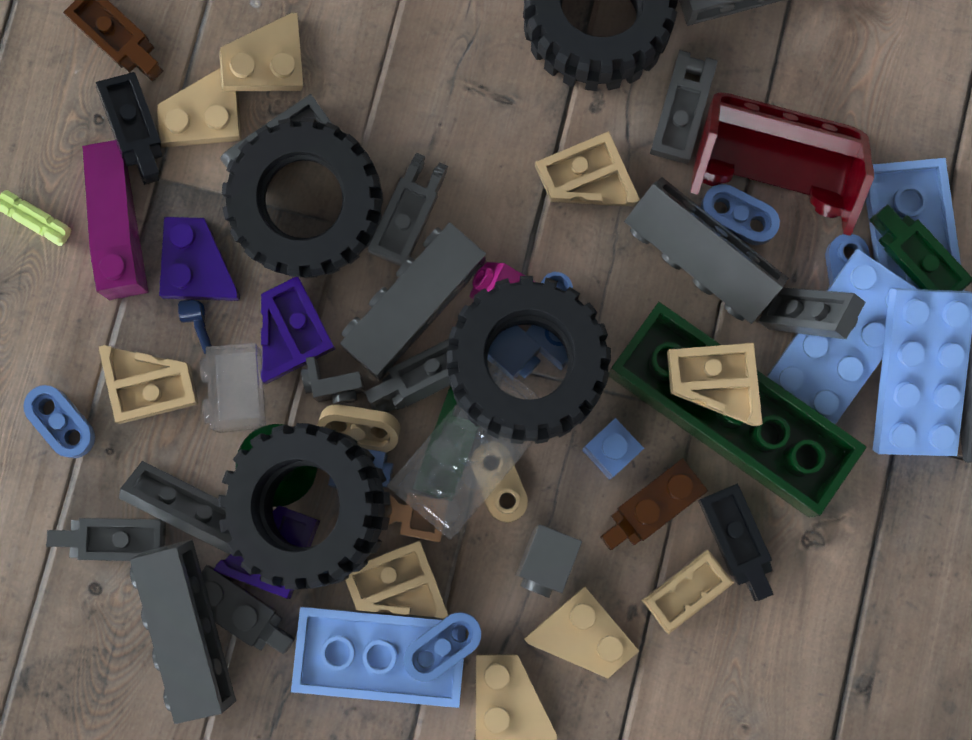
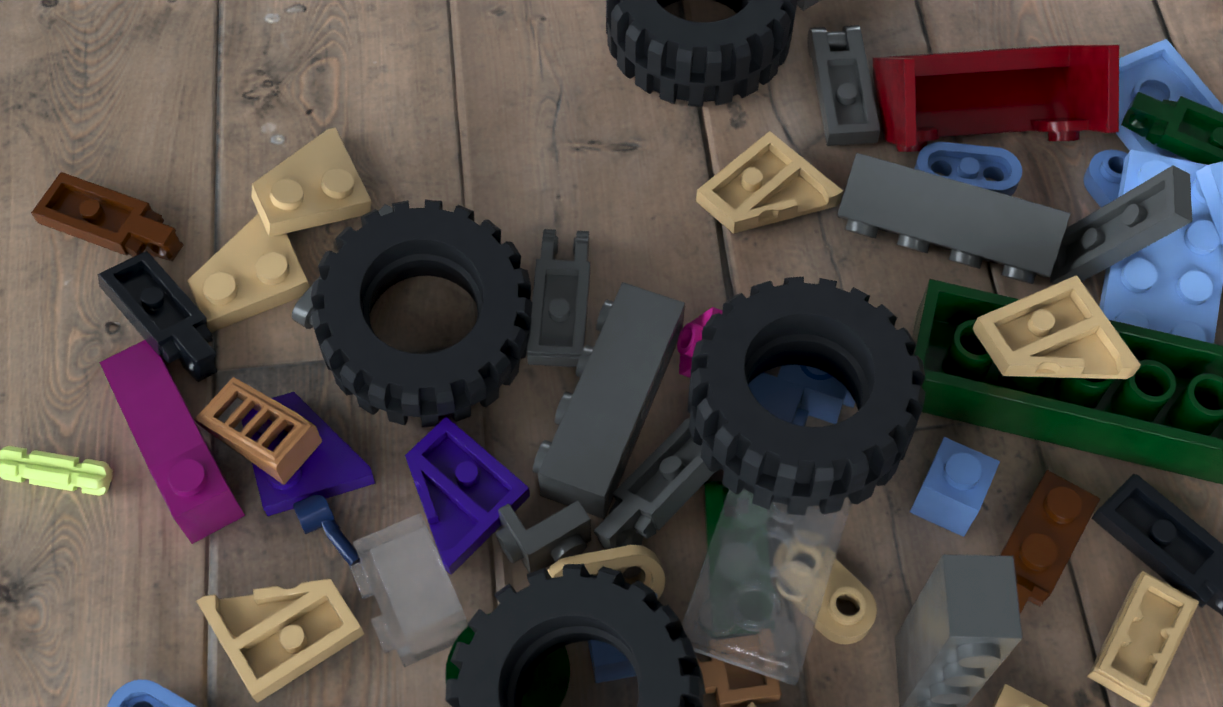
camera: 20 degrees left, 20 degrees down
(187, 267) = (290, 452): none -> medium nougat slope

